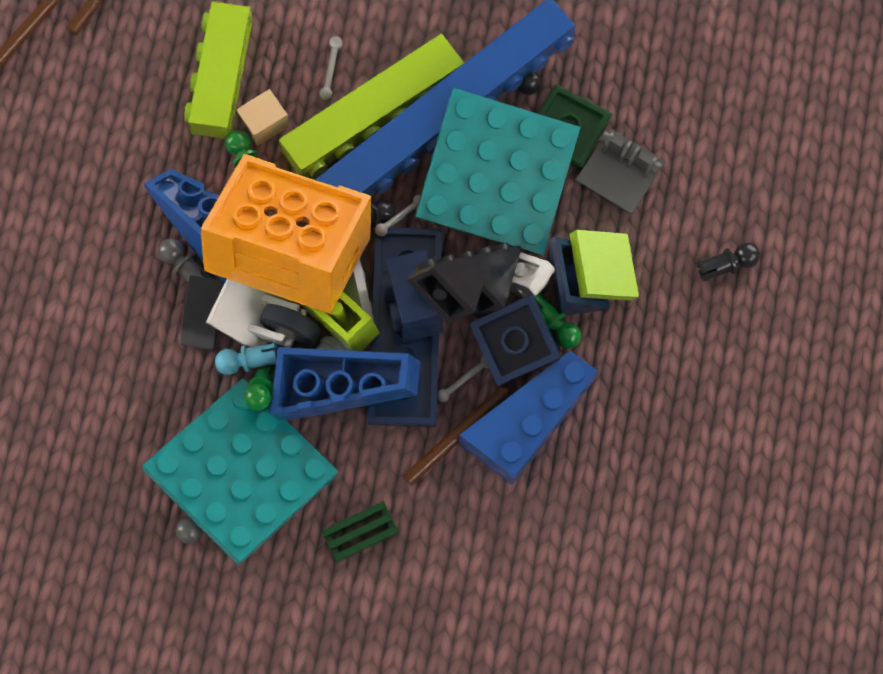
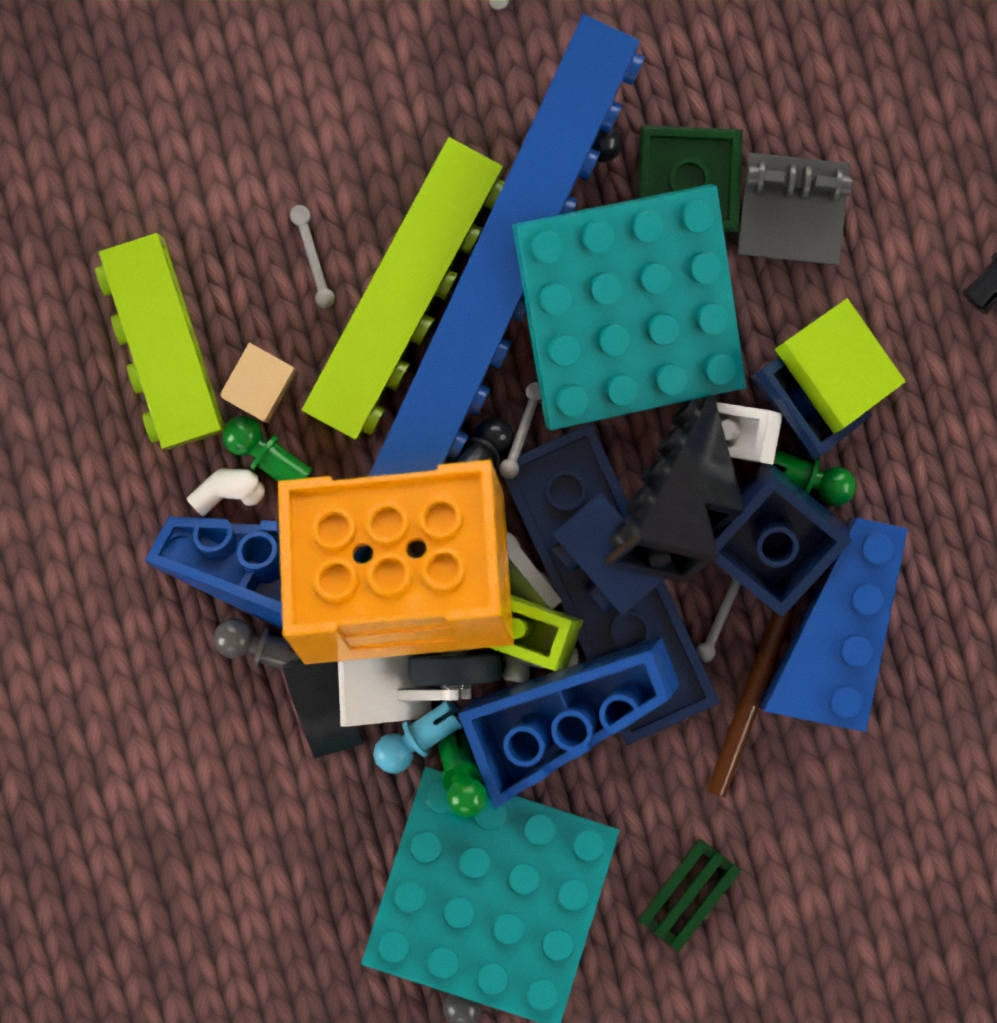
camera: 25 degrees left, 15 degrees up
(212, 165) = (227, 484): none -> white arm

